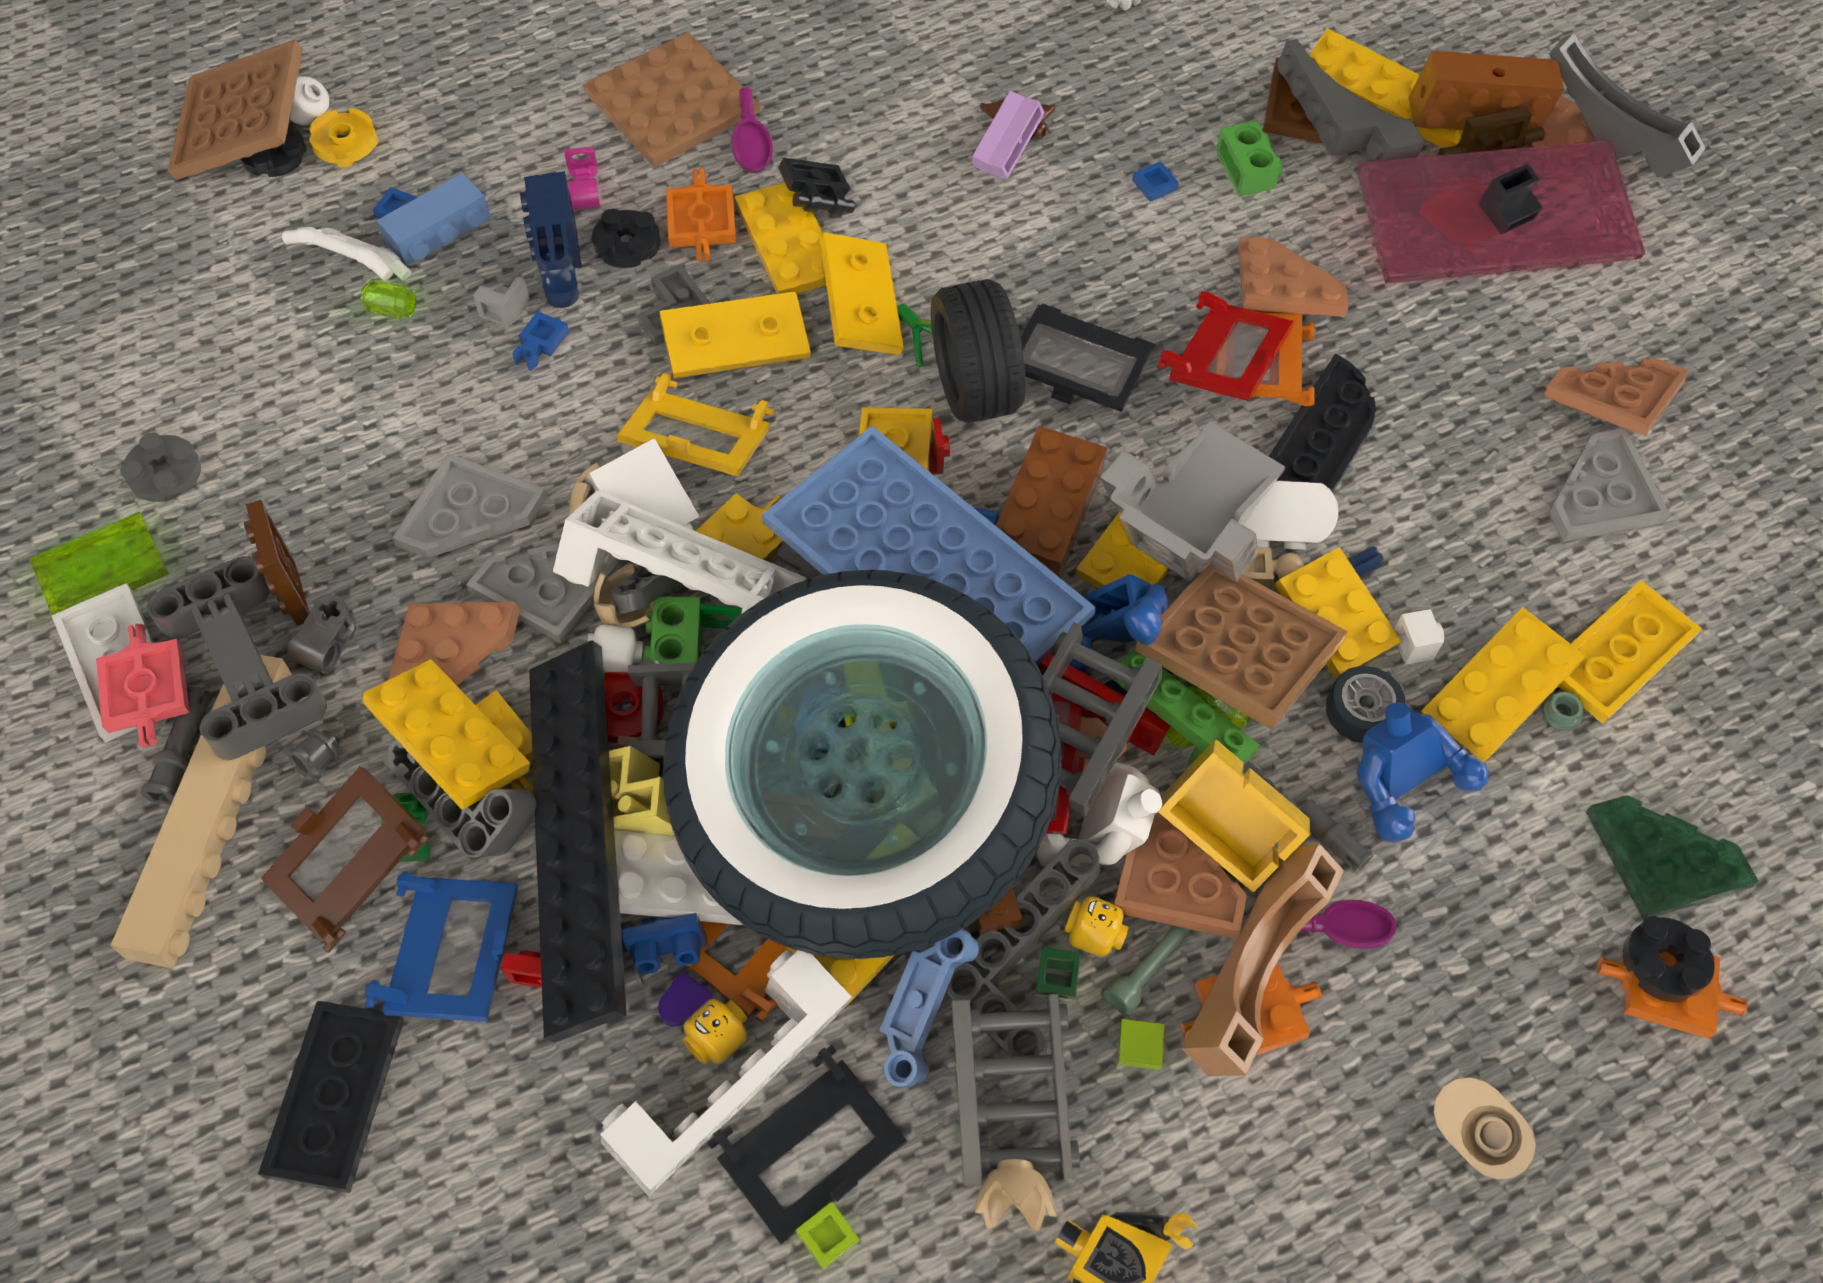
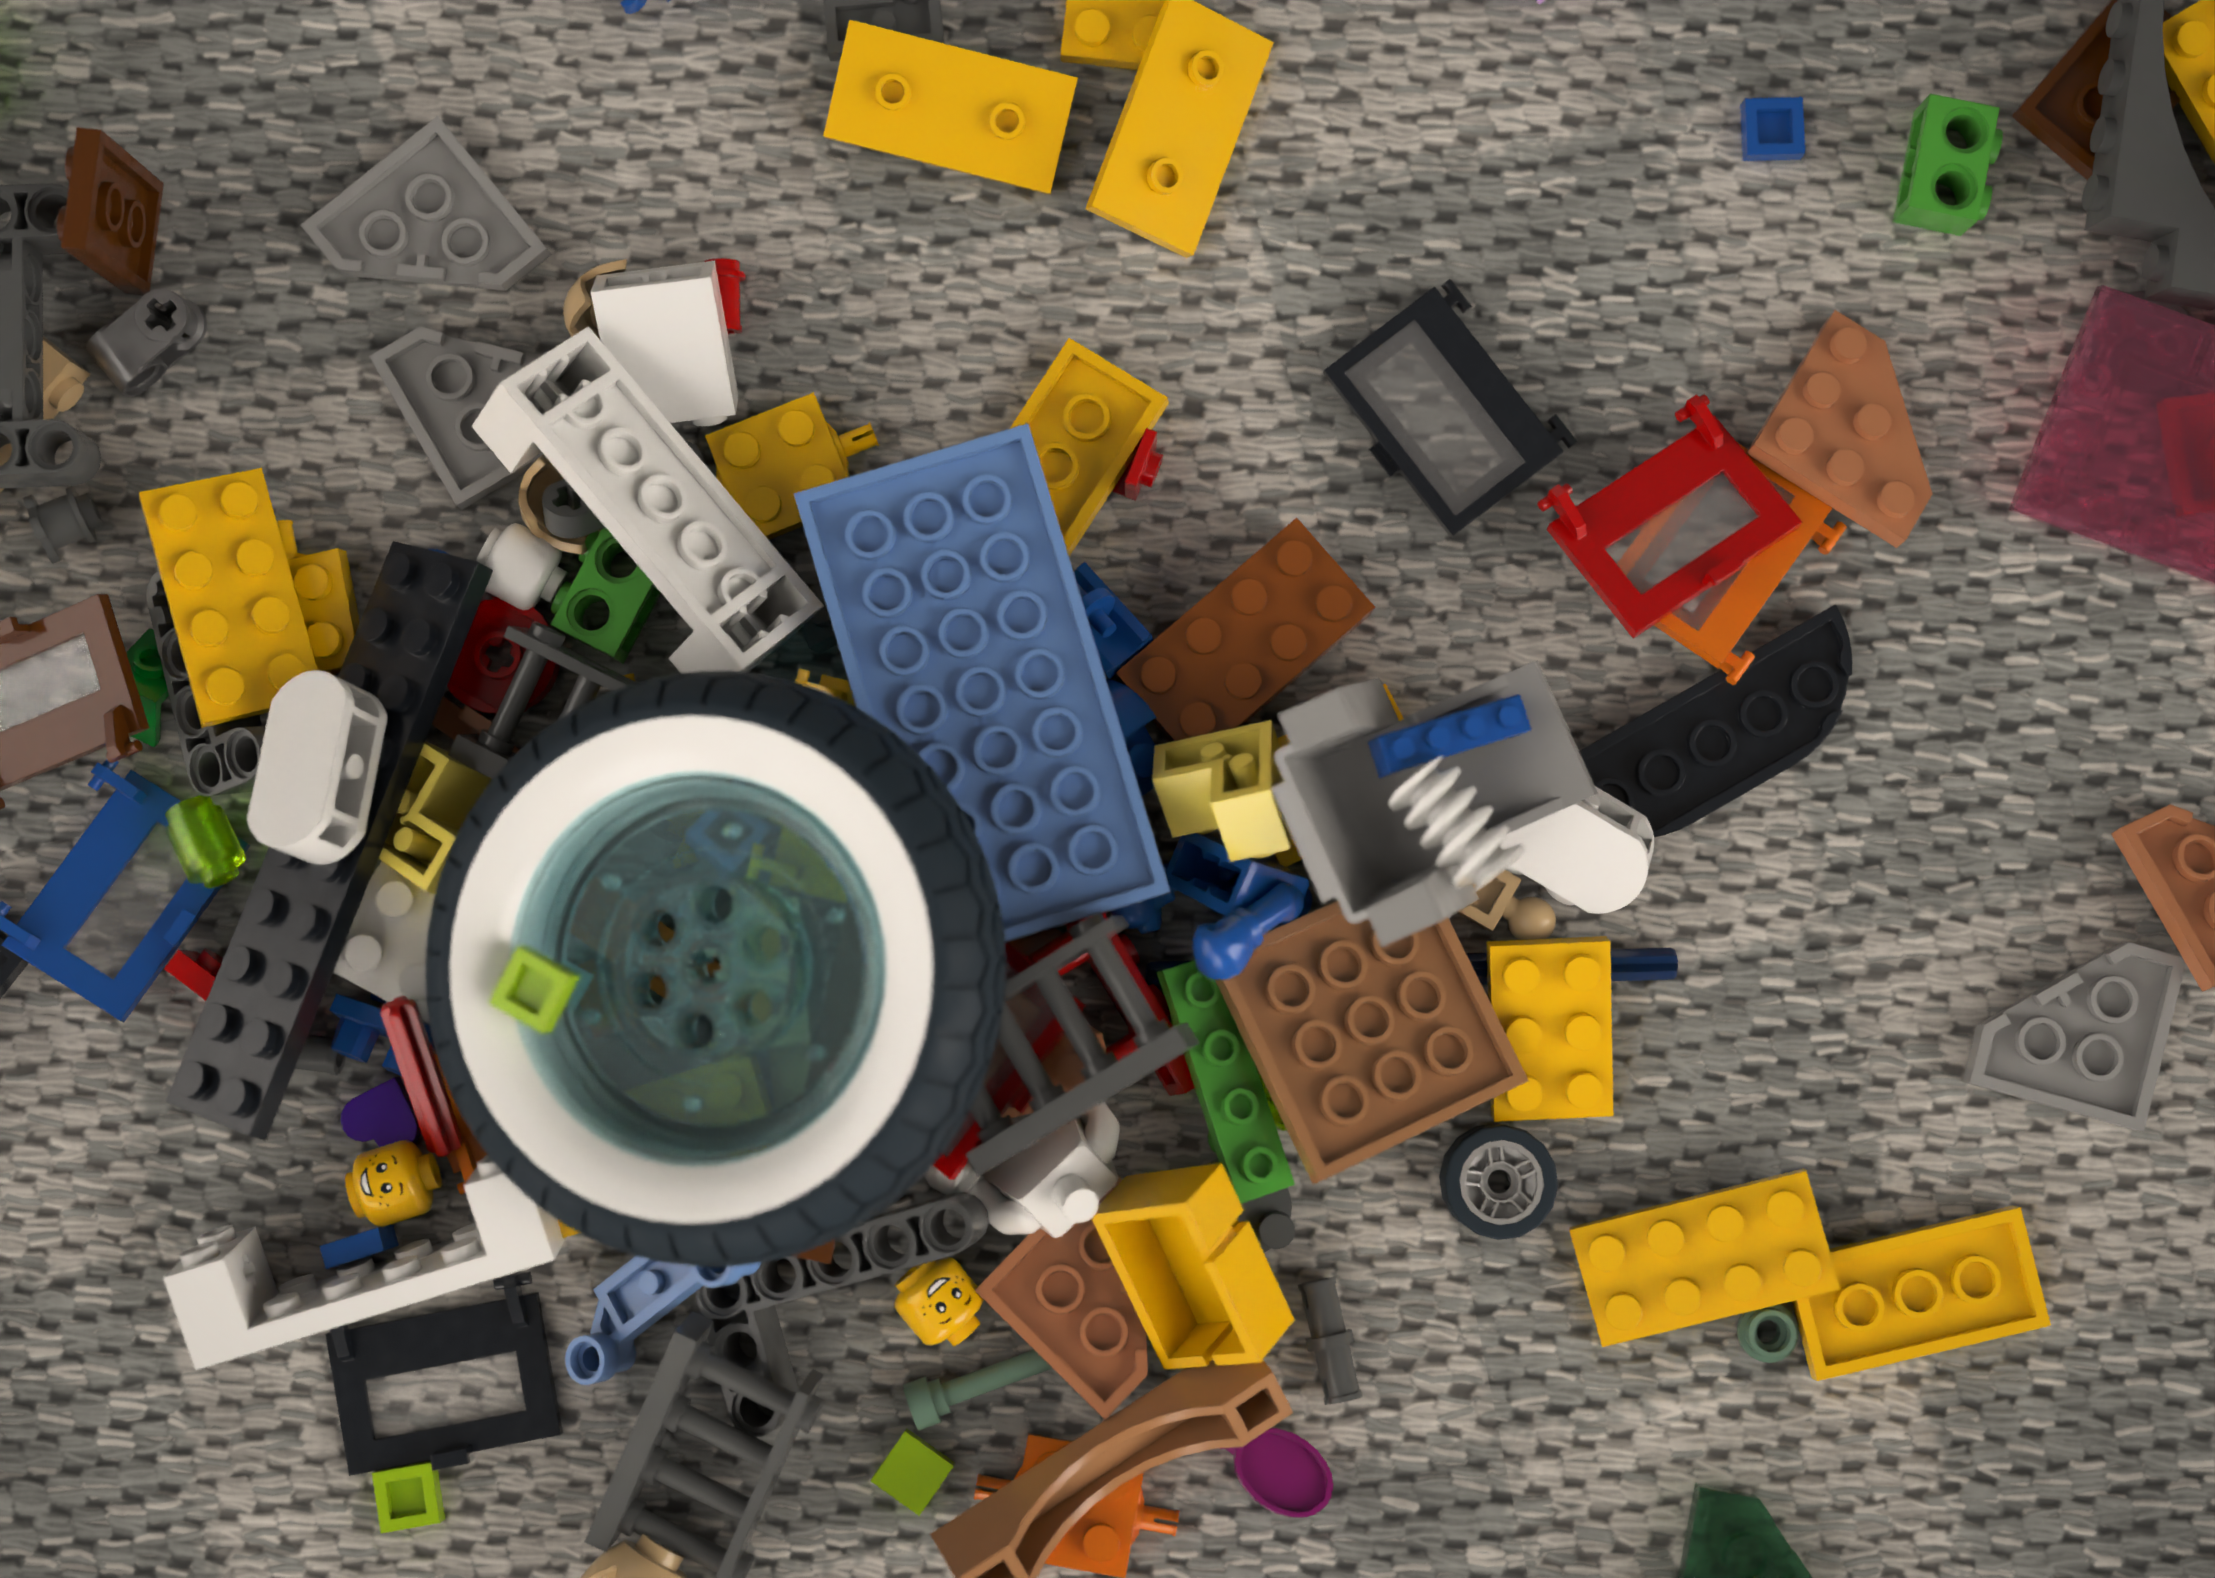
camera: 30 degrees right, 25 degrees up
(454, 636) = (308, 436): nougat plate -> none
(491, 884) = (204, 841): none -> clear neon green brick
(551, 784) = (317, 768): none -> white brick
(696, 430) = (808, 252): yellow piece -> none
(703, 945) = (421, 1075): none -> red axle
(710, 1081) = (358, 1246): none -> blue tile
(763, 805) = (534, 989): none -> lime tile
(917, 325) = (1240, 227): green plant -> none
(978, 350) = (1265, 355): black tyre -> none
(1058, 973) = (842, 1349): dark green leg -> none
(1091, 550) = (1224, 785): none -> light yellow brick
(1192, 466) = (1449, 735): none -> blue piece
(1226, 498) = (1454, 826): none -> white piece
(1404, 754) = (1487, 1290): blue torso -> none
(1419, 636) = (1641, 1124): white plate -> none

